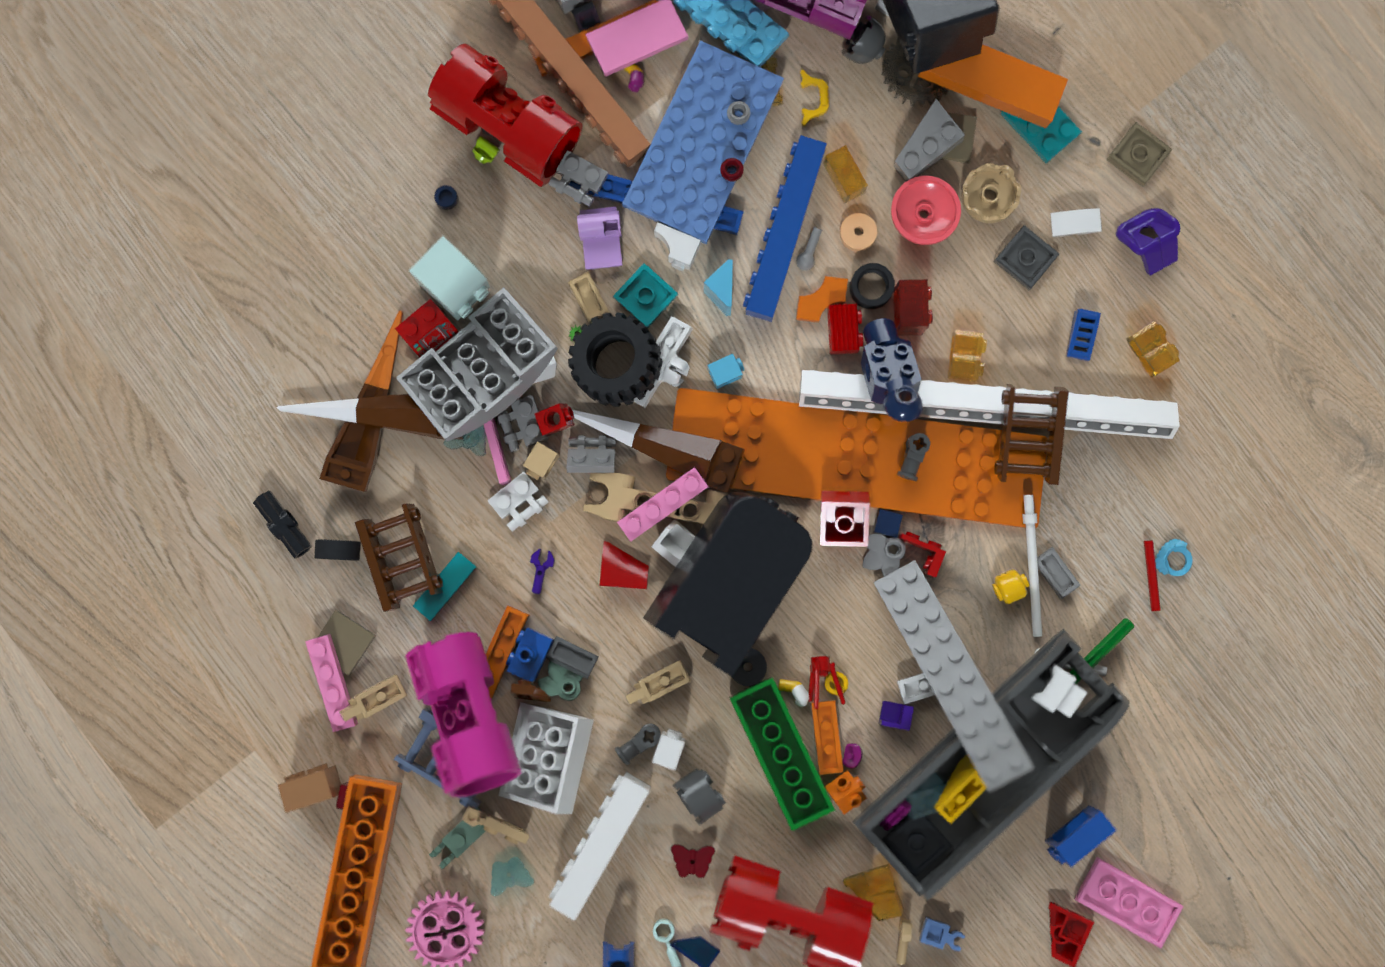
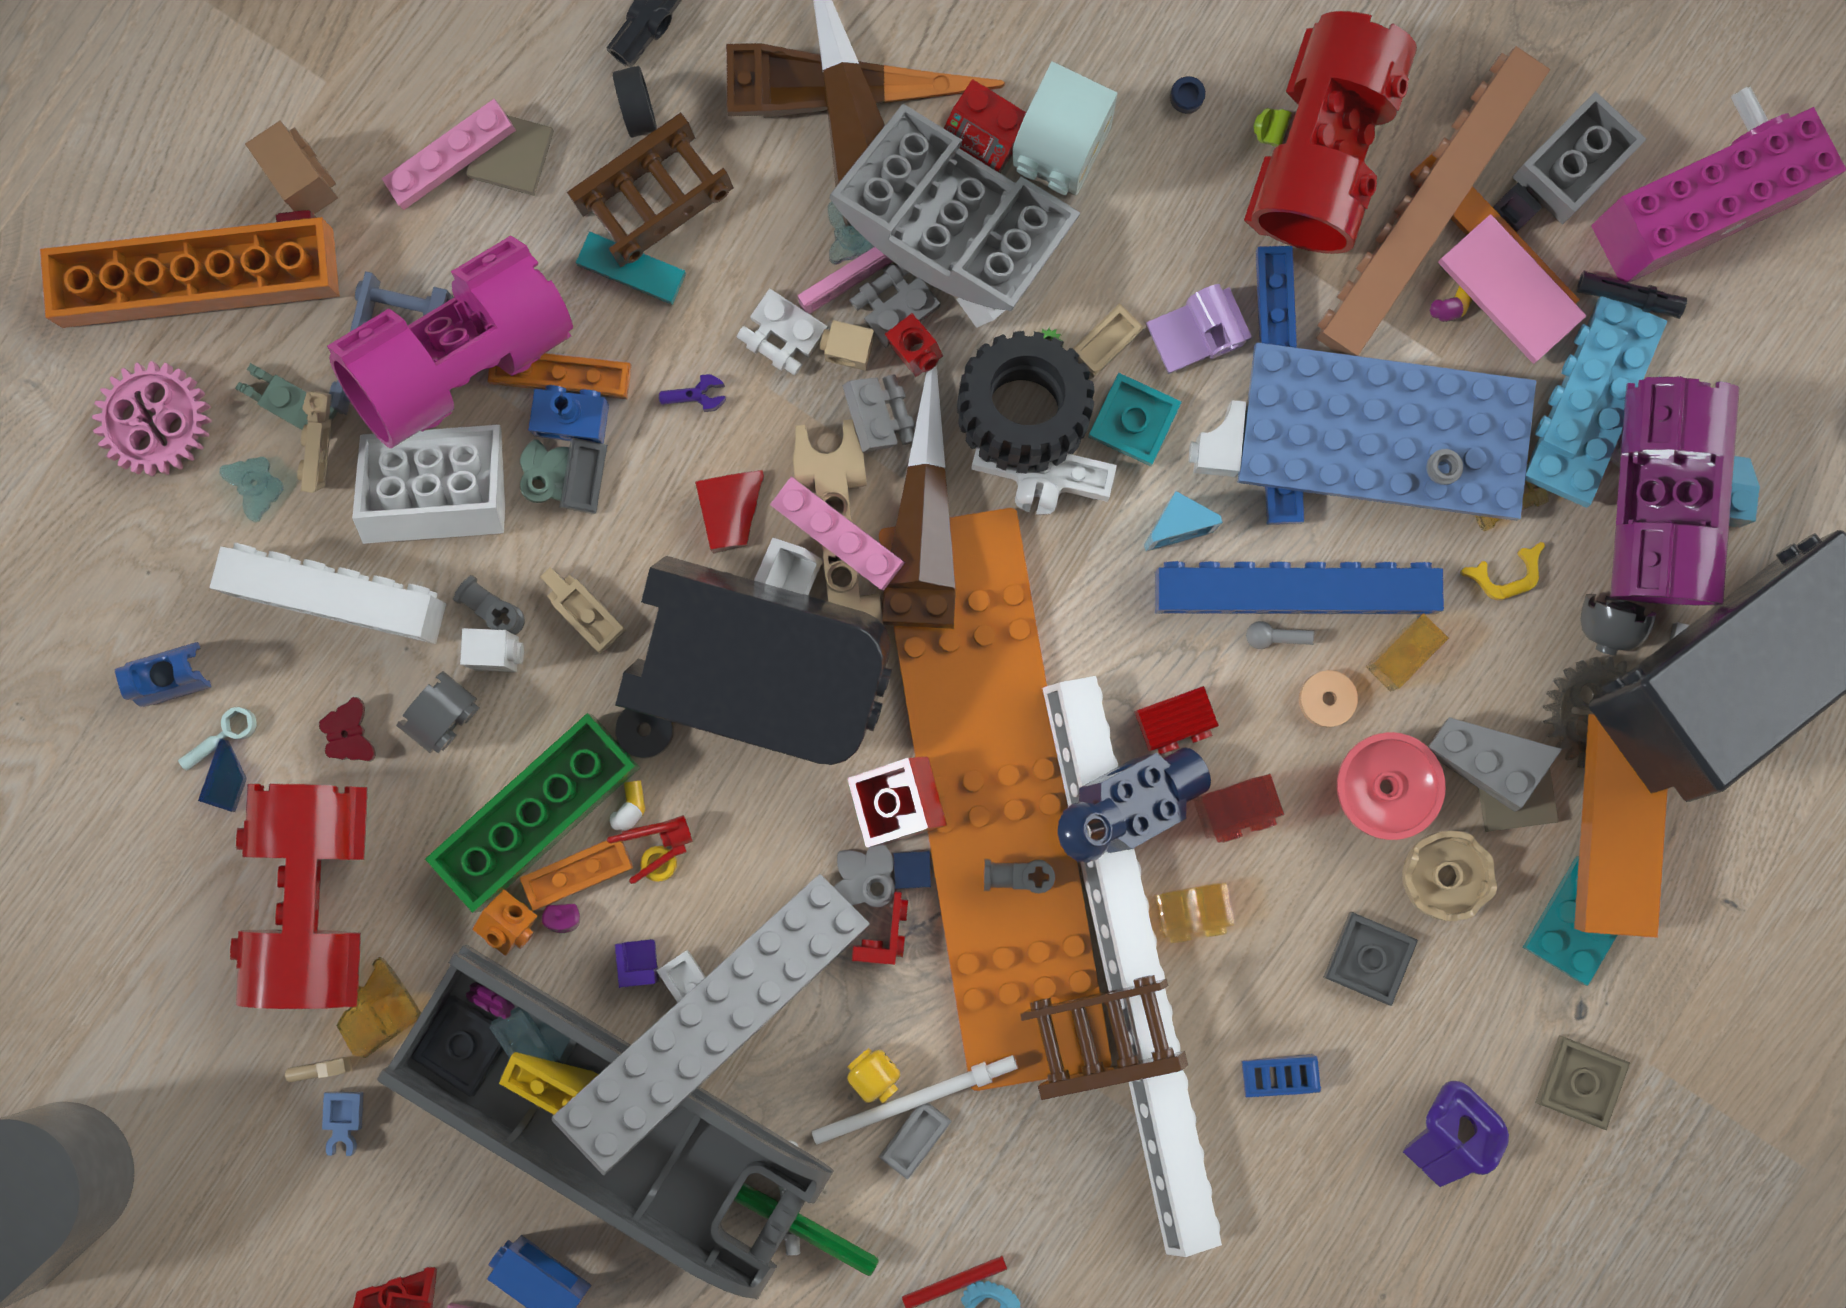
camera: 70 degrees right, 0 degrees up
(374, 699) = (442, 219): tan hinge -> none
(528, 691) = (516, 427): reddish brown plate -> none
(581, 172) = (1284, 270): light grey plate -> none
(725, 371) = (1060, 567): medium azure brick -> none
(735, 163) = (1362, 473): dark red plate -> none
(831, 292) = (1225, 685): orange tile -> none
(871, 303) = (1280, 746): black tyre -> none
(1060, 692) = (734, 1189): white piece -> none
(1076, 222) = (1447, 1016): white slope -> none
(1153, 349) = (1292, 1188): clear yellow brick -> none

